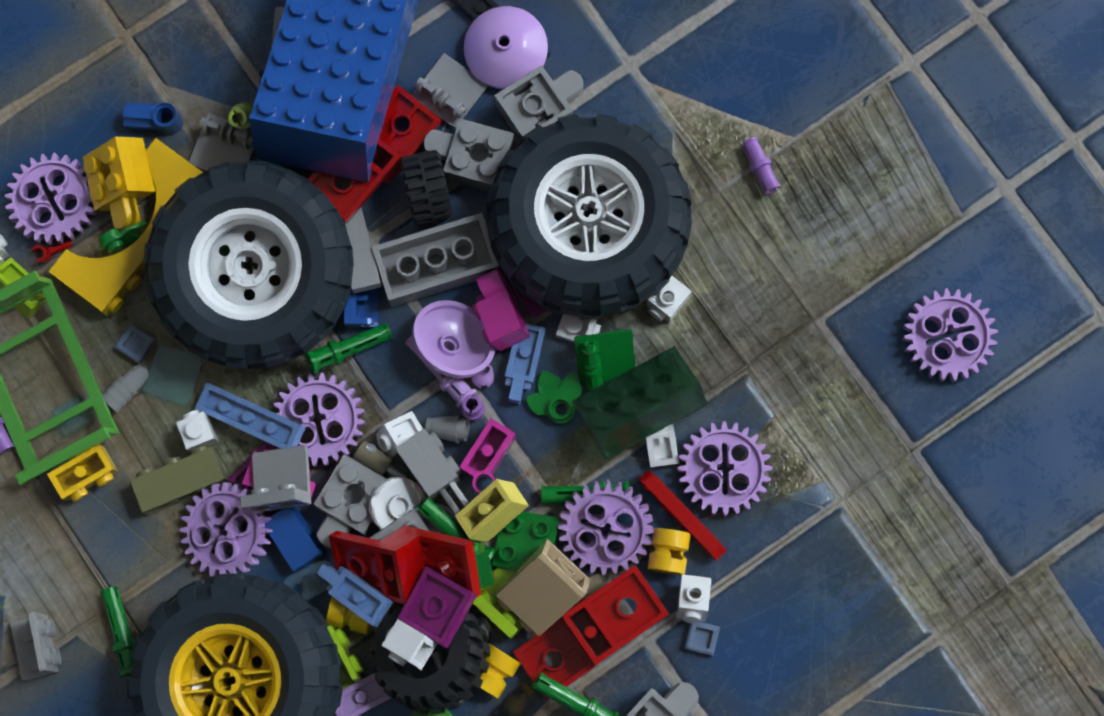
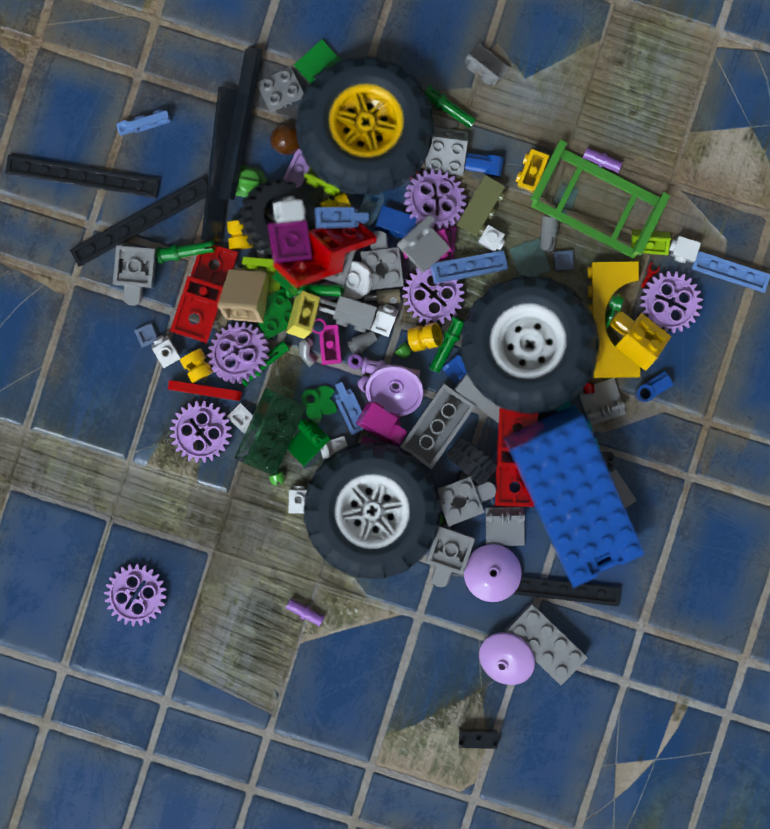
camera: 135 degrees right, 10 degrees up
(129, 522) = (489, 165): none -> blue piece
(161, 574) = (447, 151): none -> light grey bracket
(240, 115) = (601, 424): lime hinge -> none
(365, 373) = (425, 337): none -> yellow wheel
(407, 381) = (403, 350): none -> bright green hinge
(525, 470) = (304, 351): none -> light grey arm
(671, 341) = (278, 478): none -> bright green hinge

